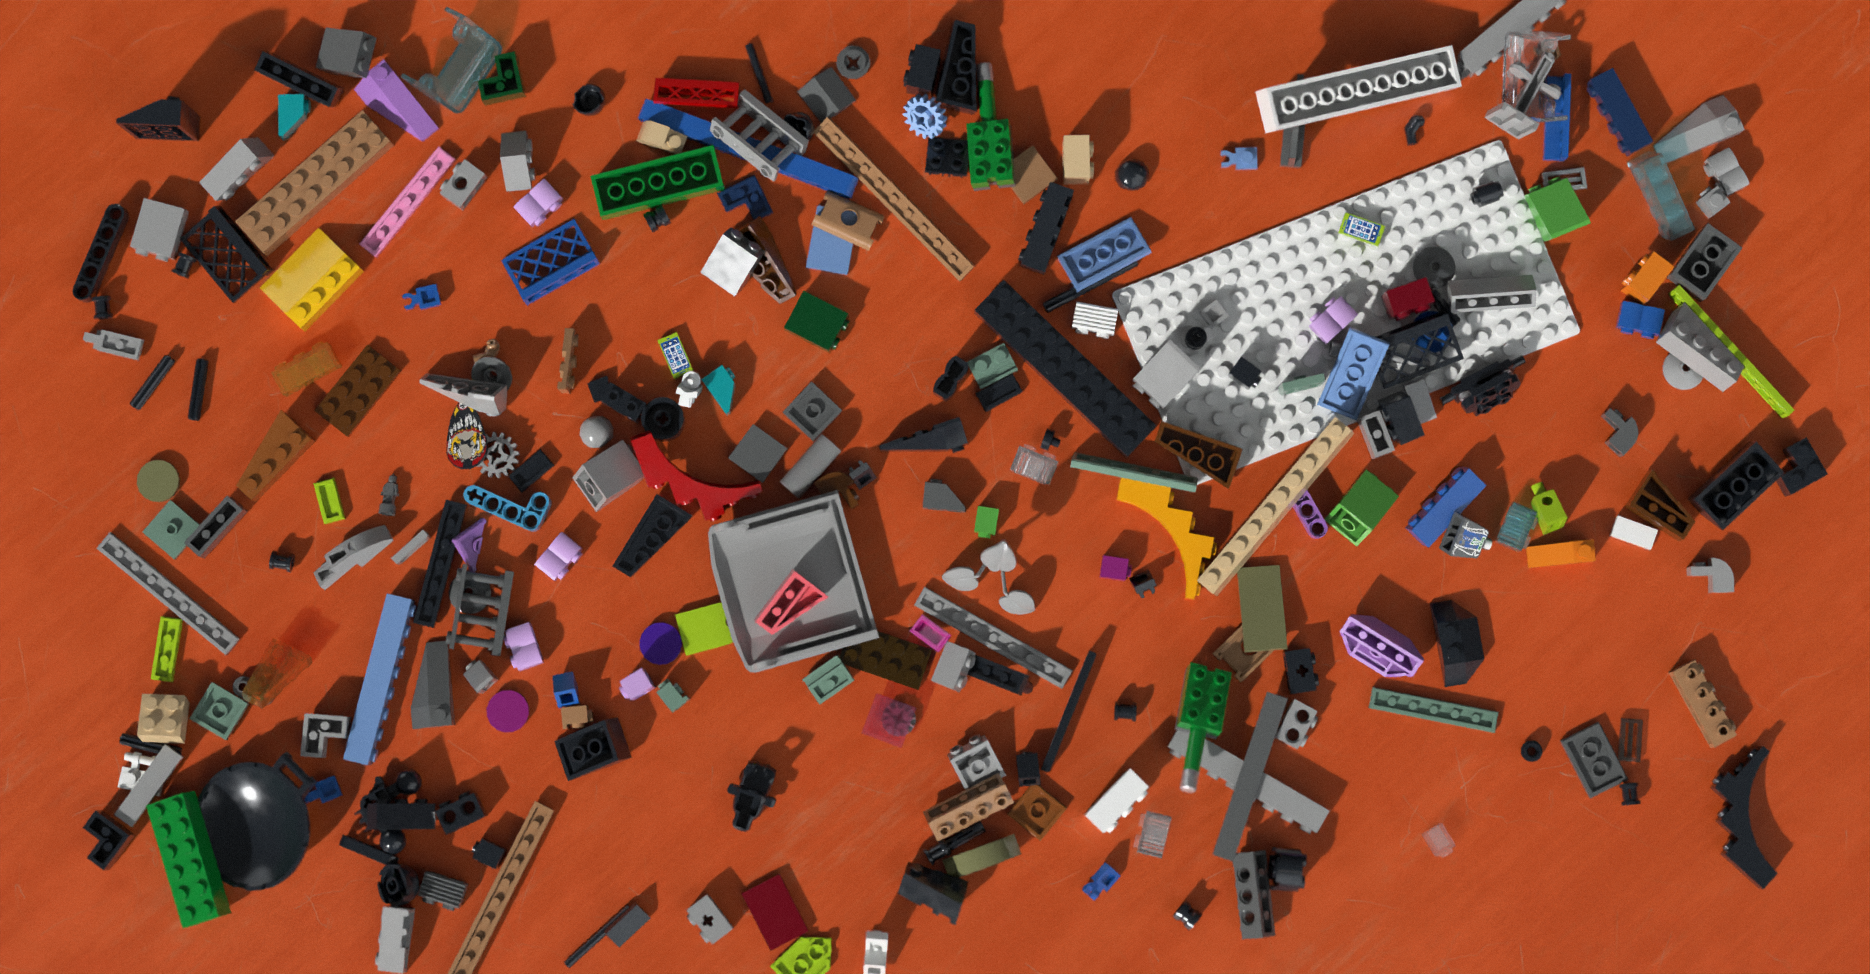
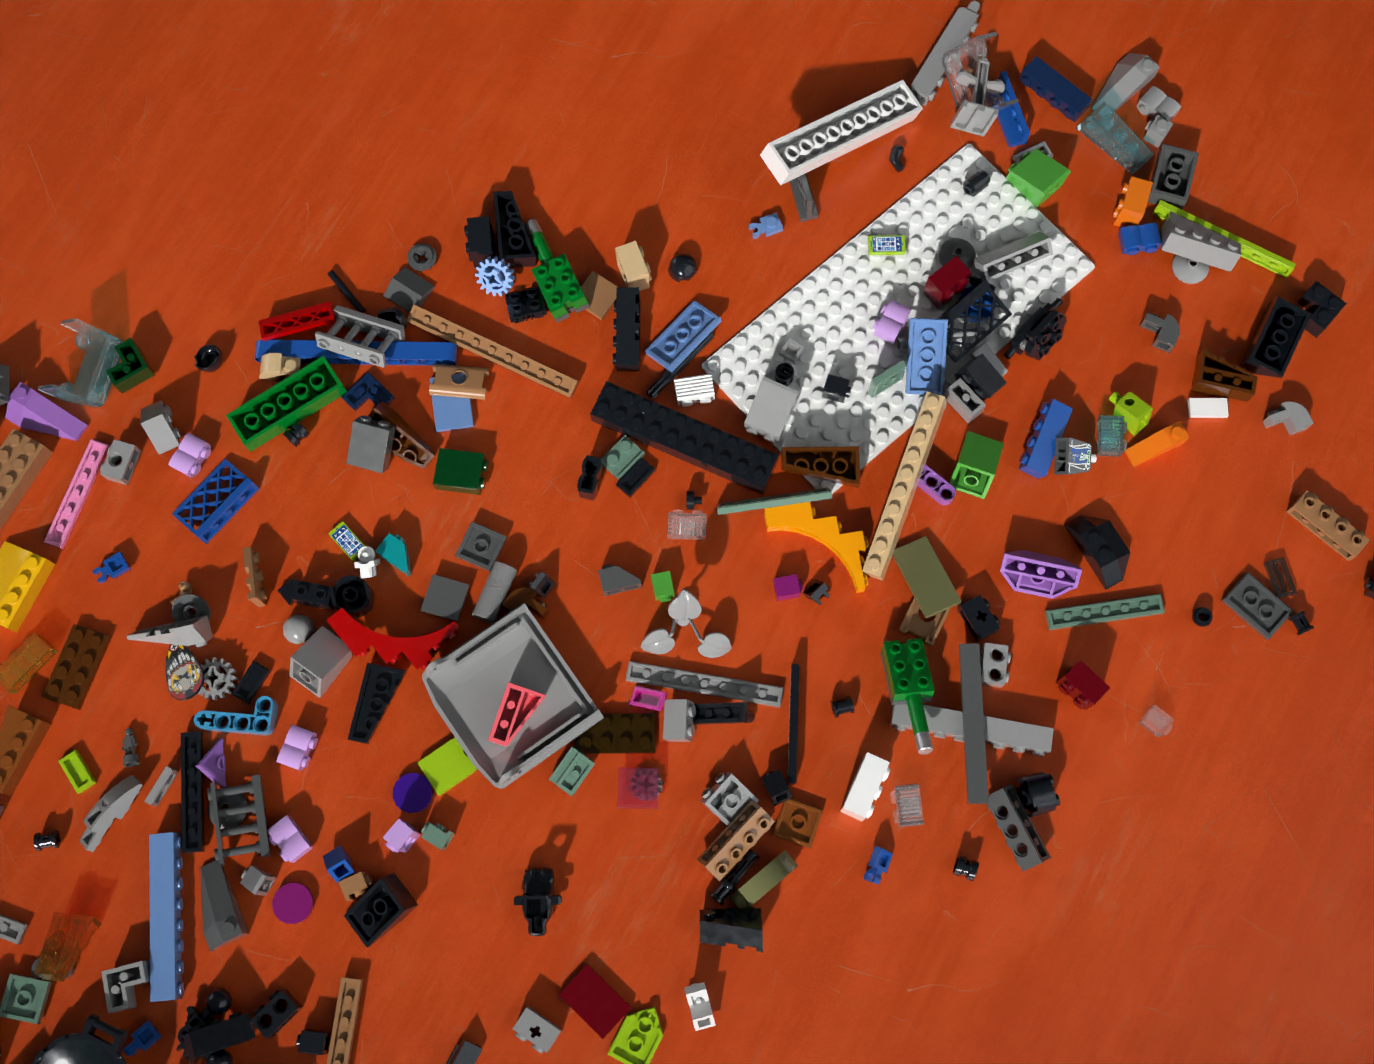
camera: 20 degrees left, 10 degrees down
(942, 438) = (601, 528): black wedge -> none
(1376, 778) = (1082, 685): none -> dark red brick

